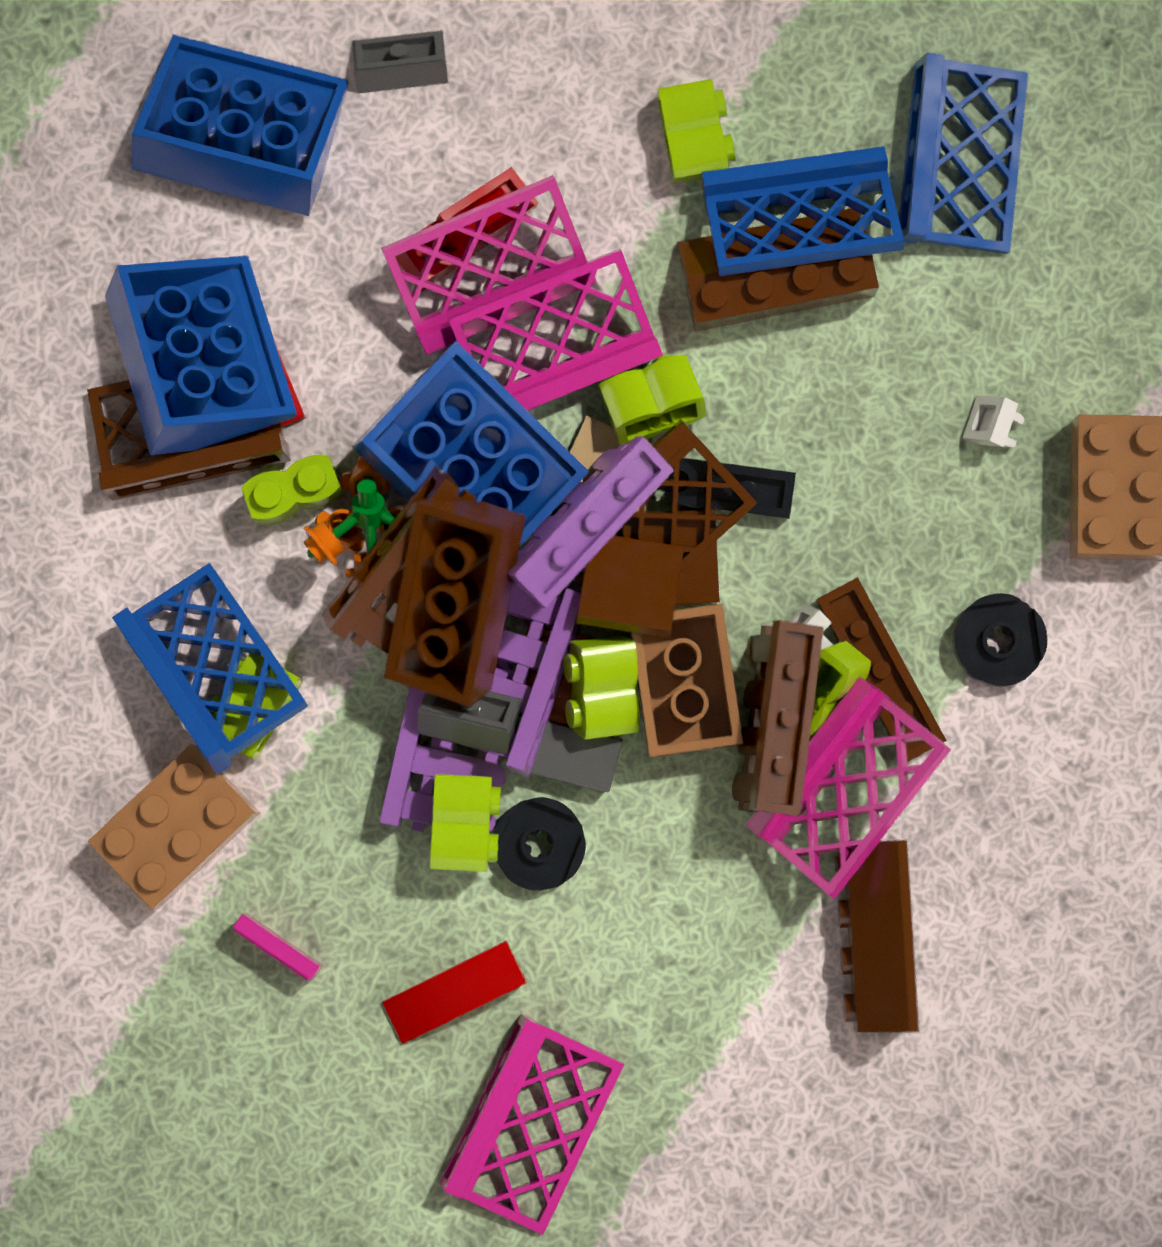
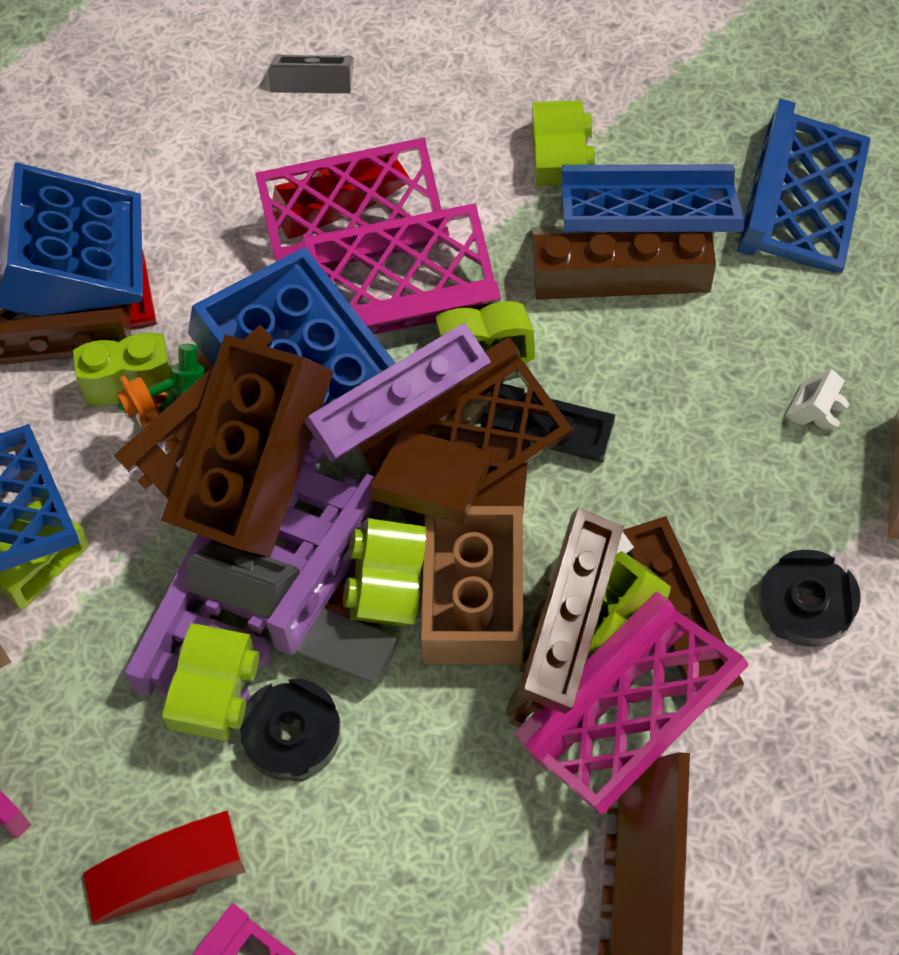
camera: 10 degrees right, 25 degrees down
(238, 125) = (156, 97): blue slope -> none

